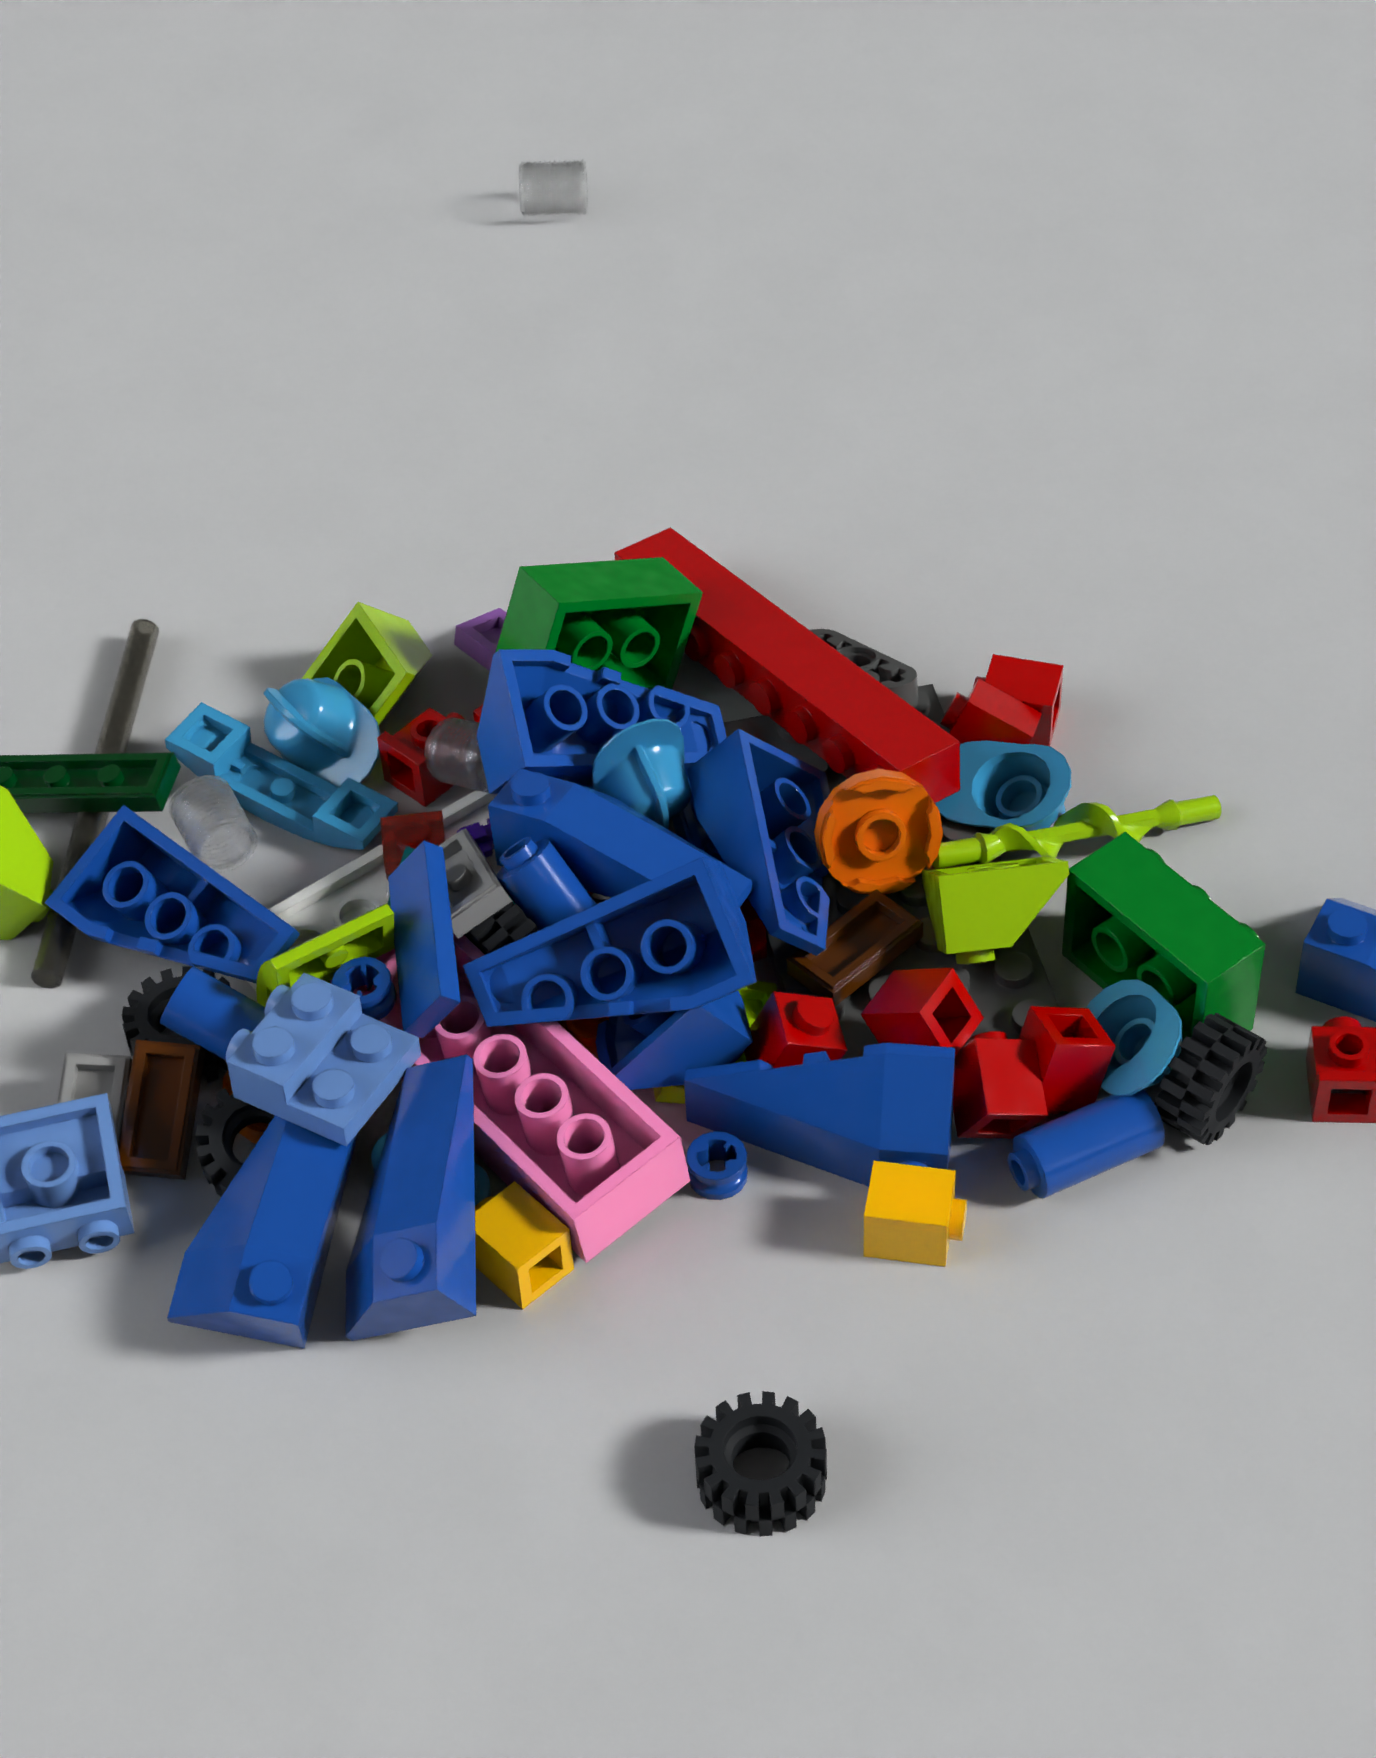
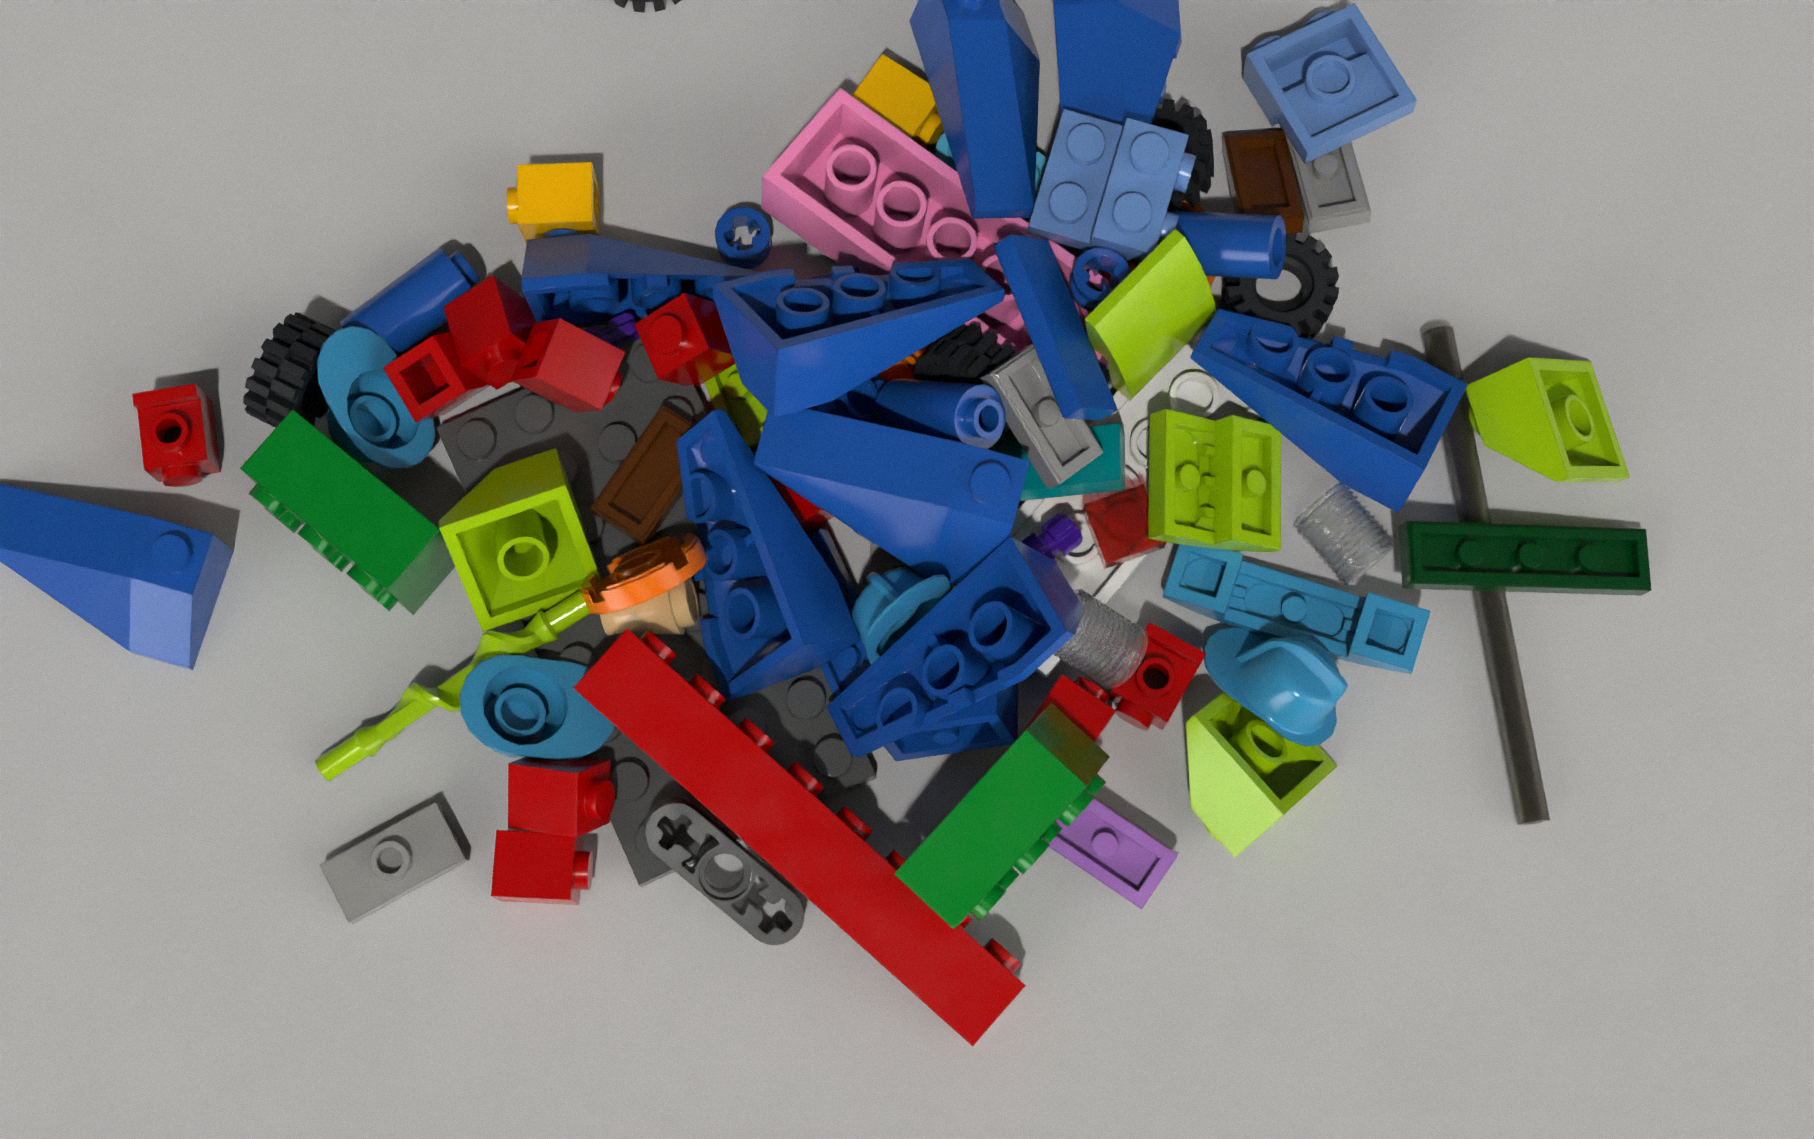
camera: 165 degrees right, 30 degrees up
(318, 855) = (1214, 482): none -> lime slope
(1154, 735) = (393, 863): none -> light grey plate

